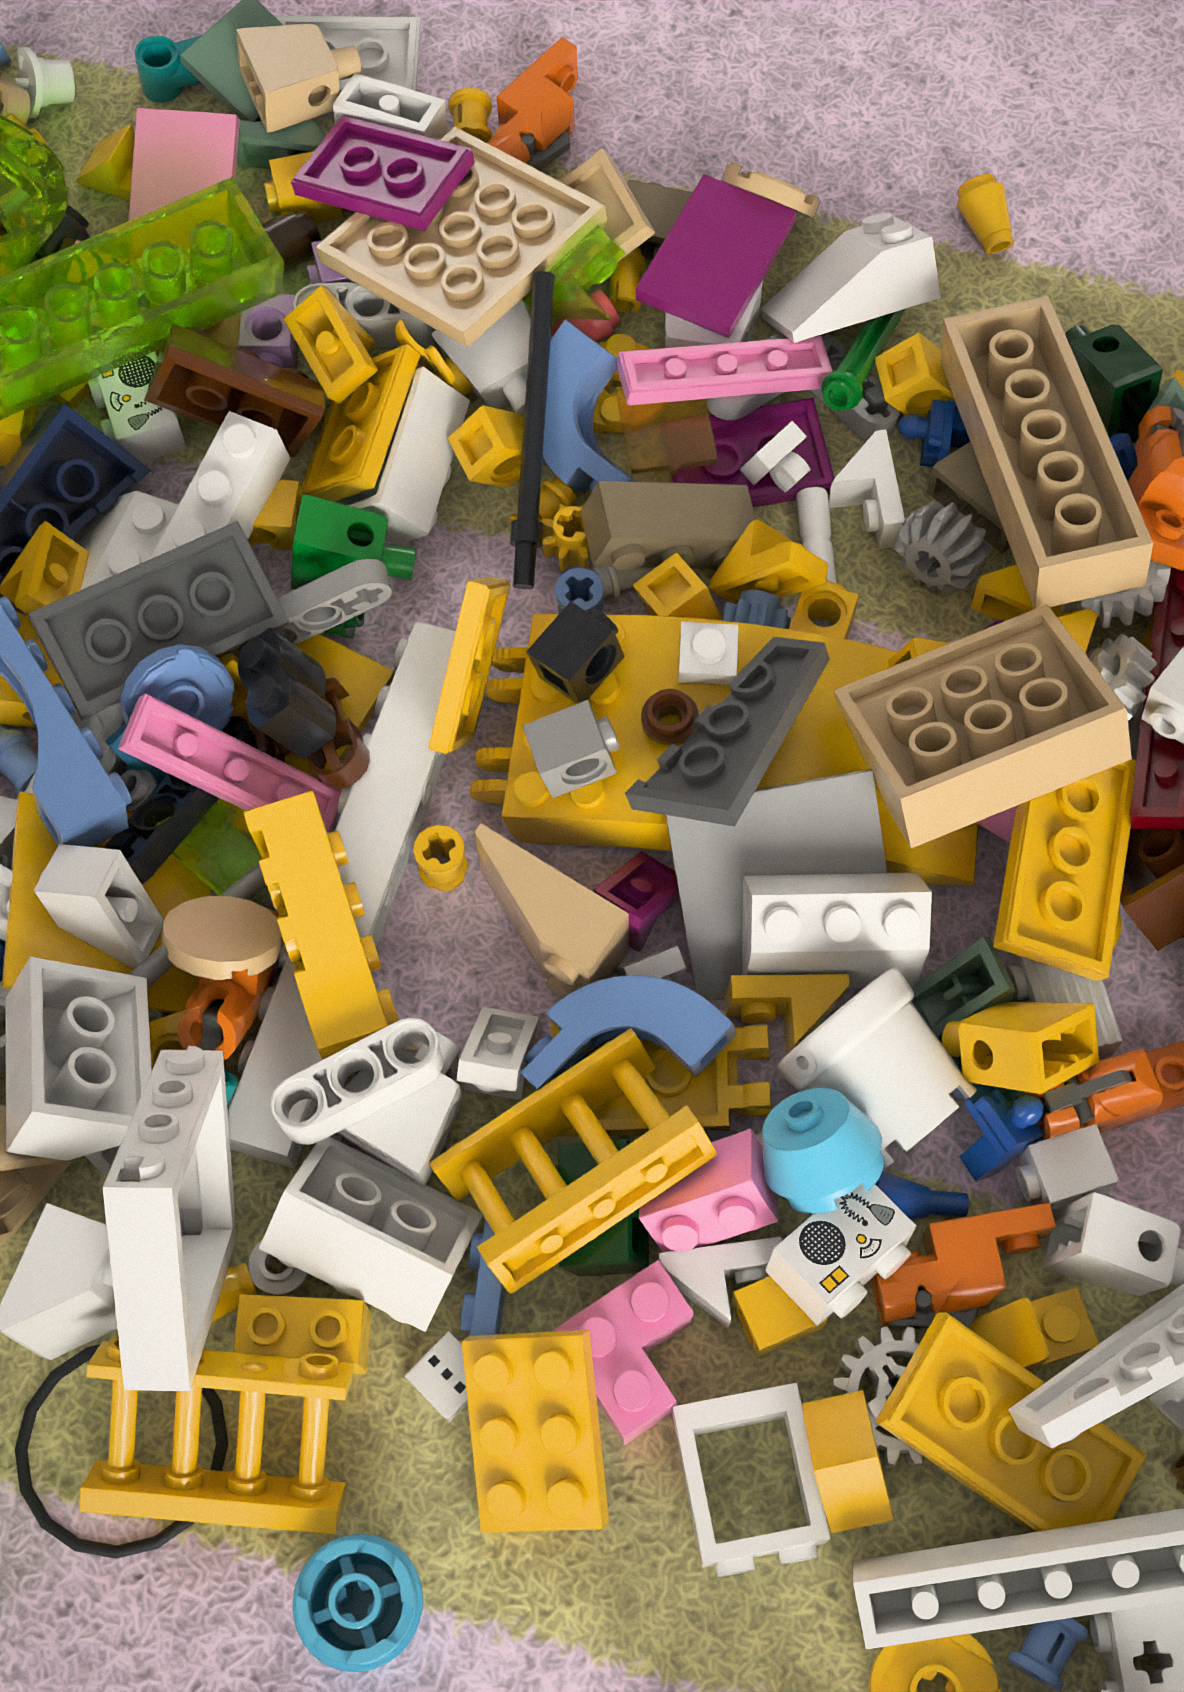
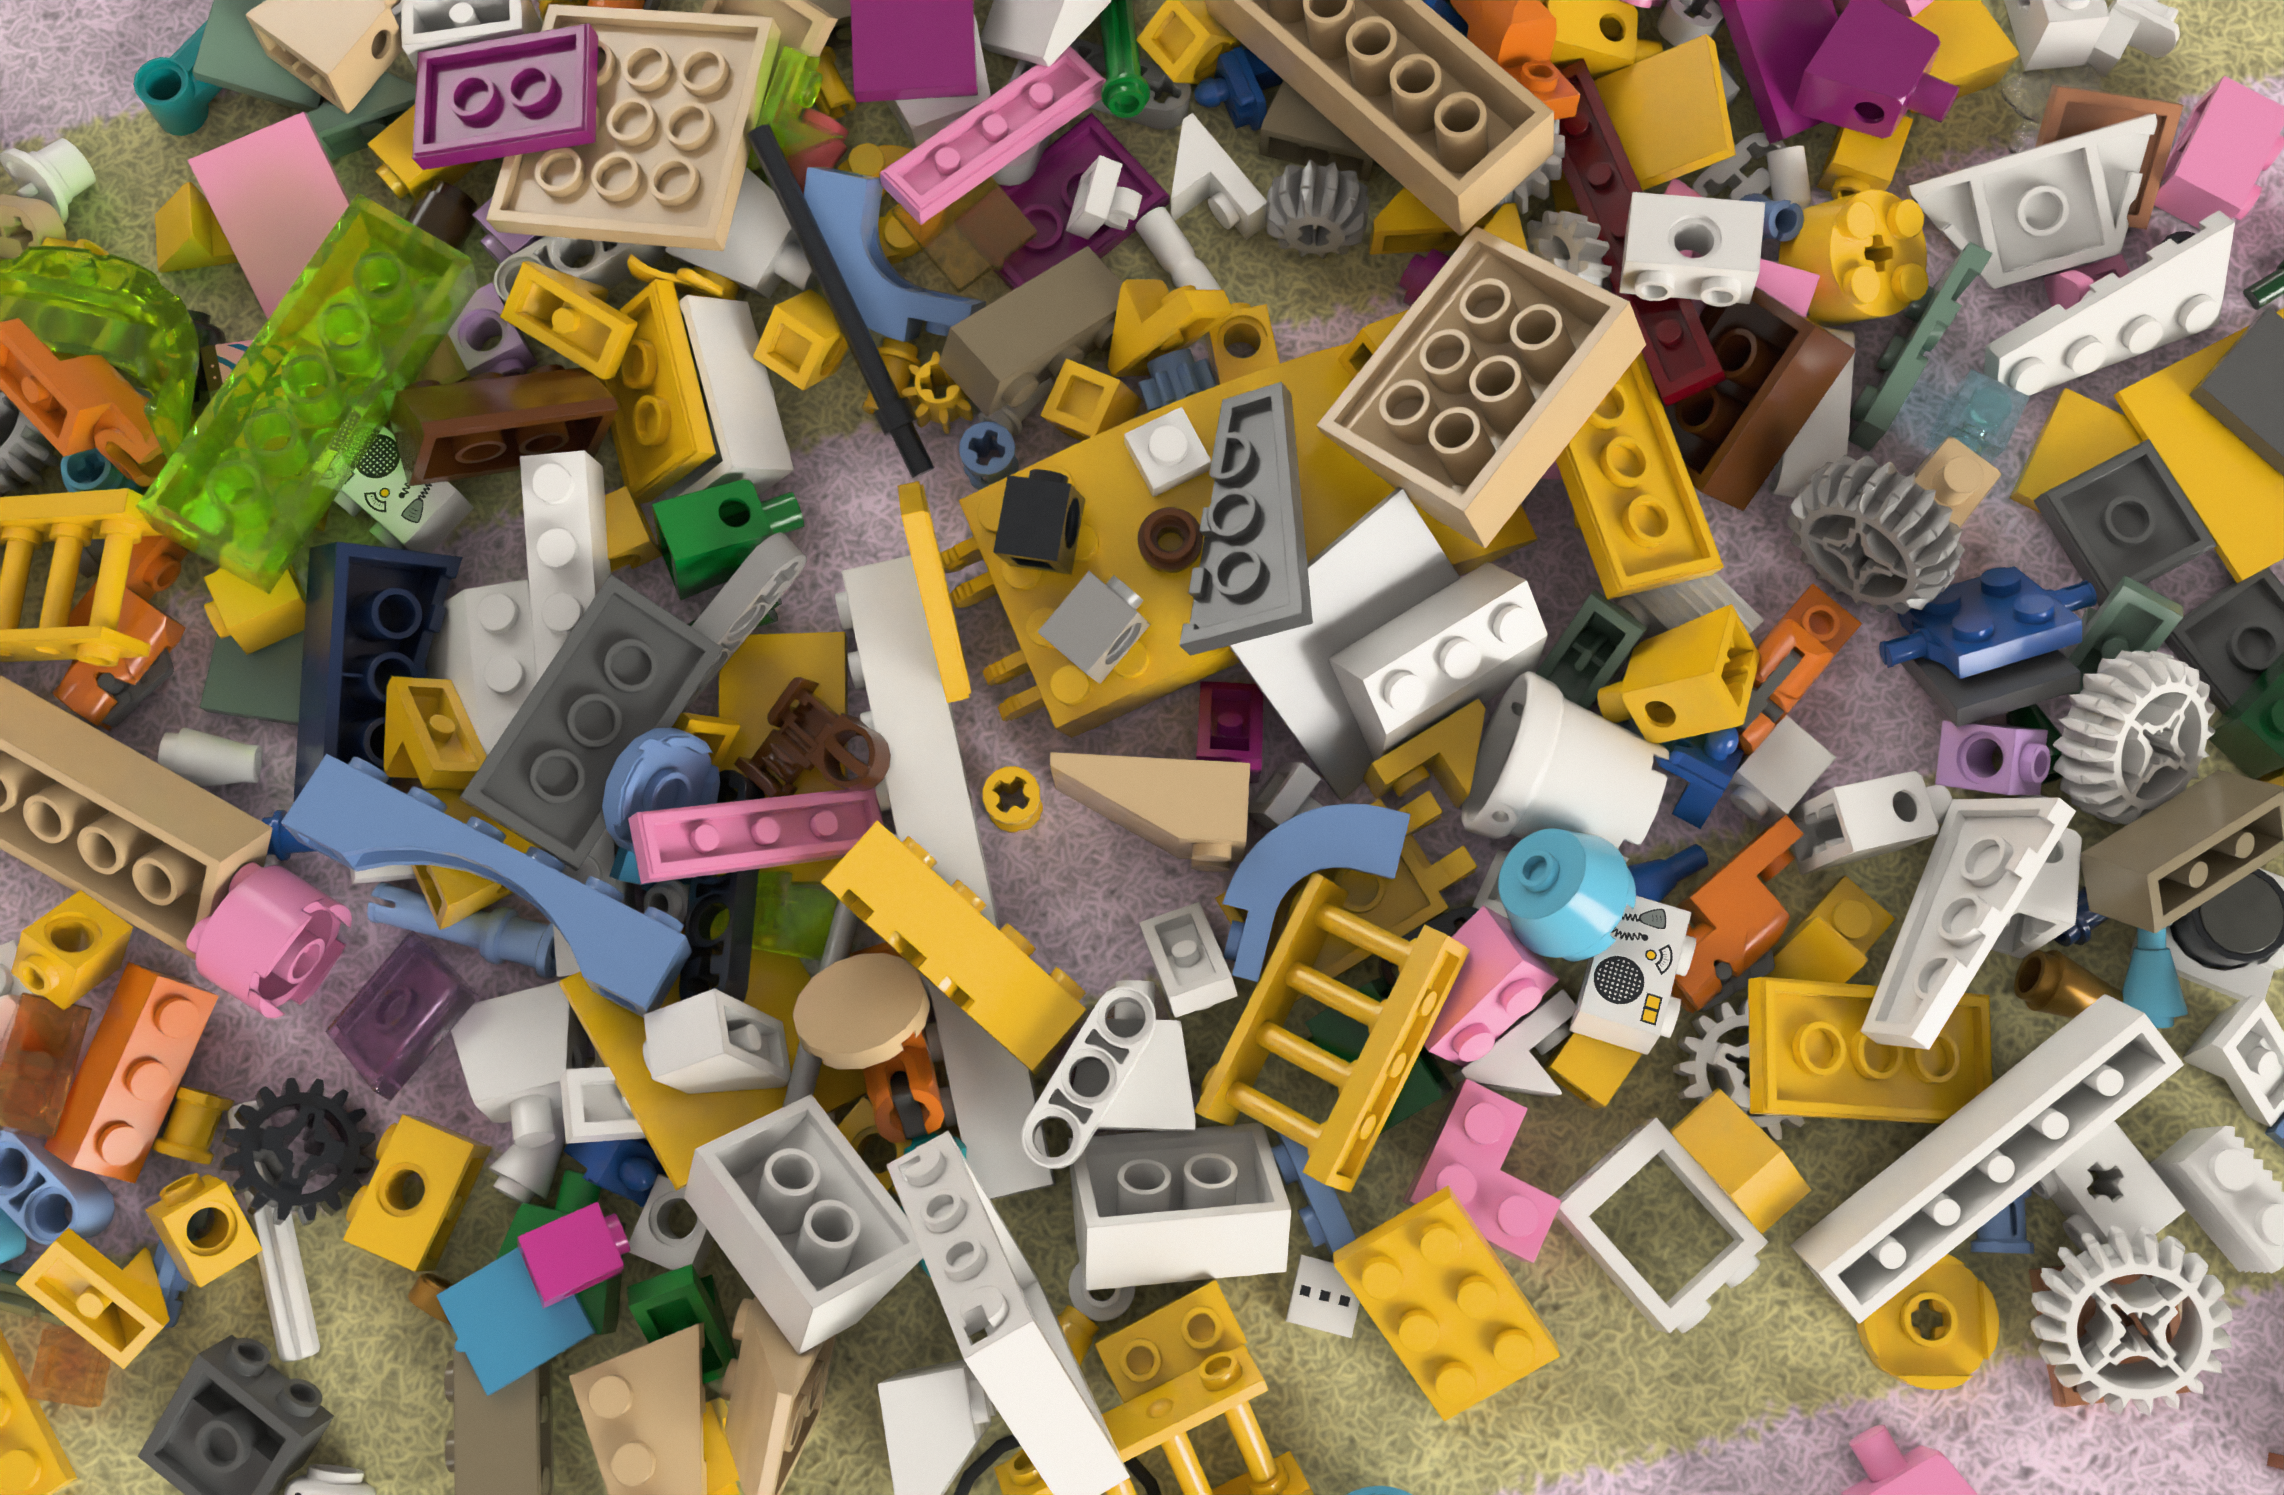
camera: 30 degrees left, 10 degrees up
(286, 693) = (766, 724): black brick -> none

